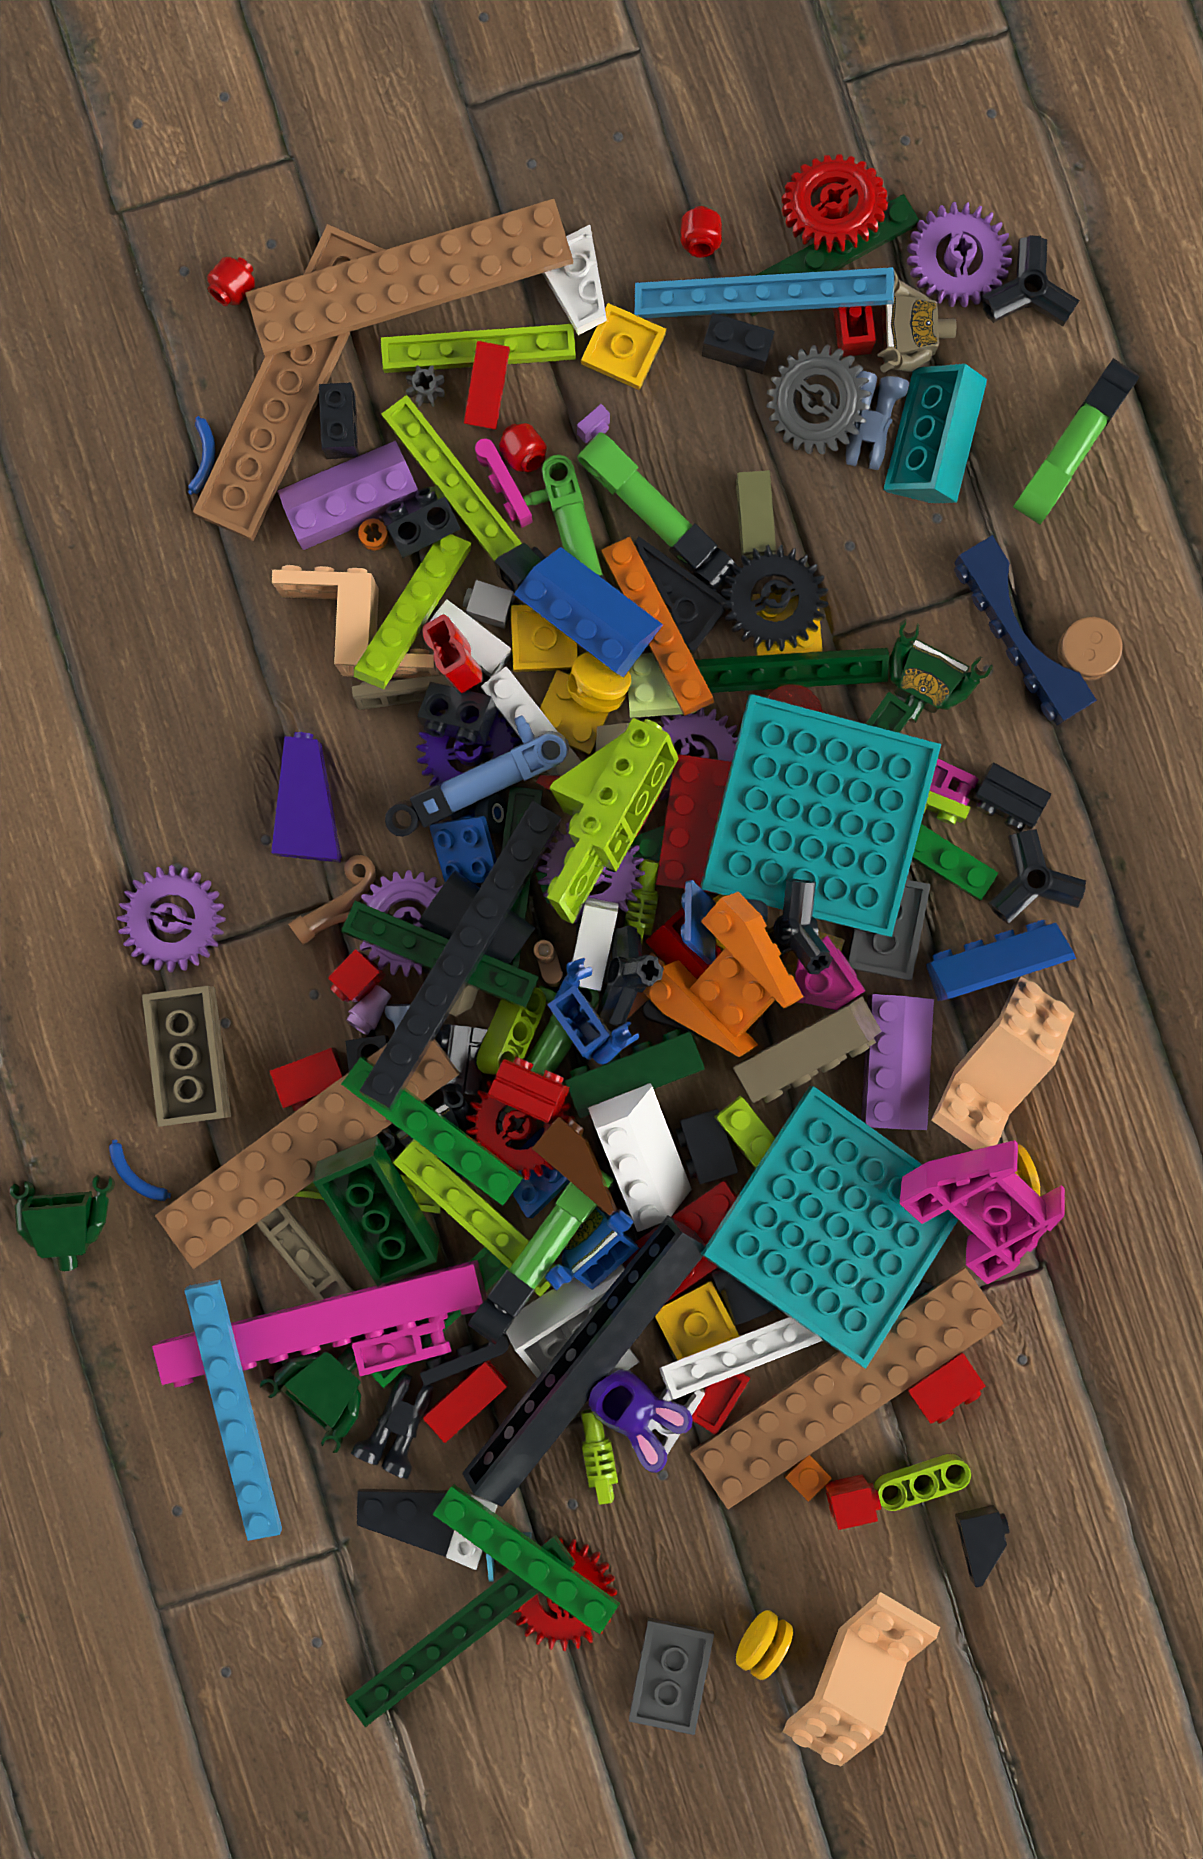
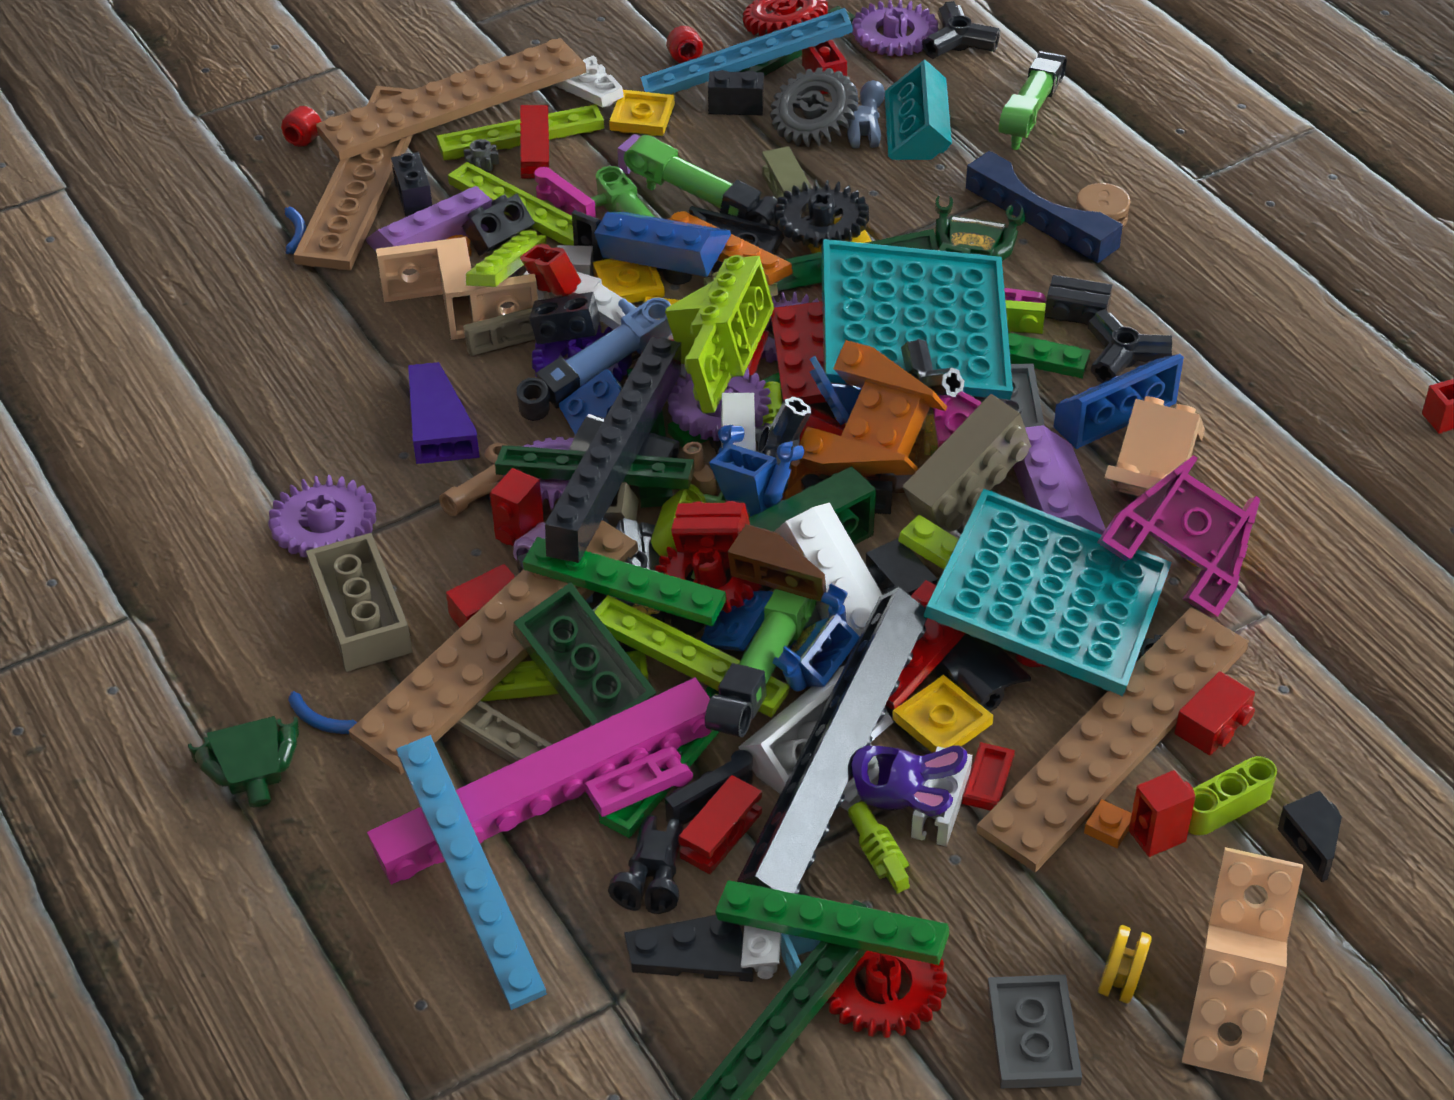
camera: 15 degrees left, 40 degrees down
(322, 1390) = (561, 839): dark green torso -> none
(522, 447) = (577, 172): red head -> none
(596, 685) = (678, 285): yellow head -> none
(736, 1356) = (1005, 711): white plate -> none
(911, 329) = (872, 62): dark tan torso -> none

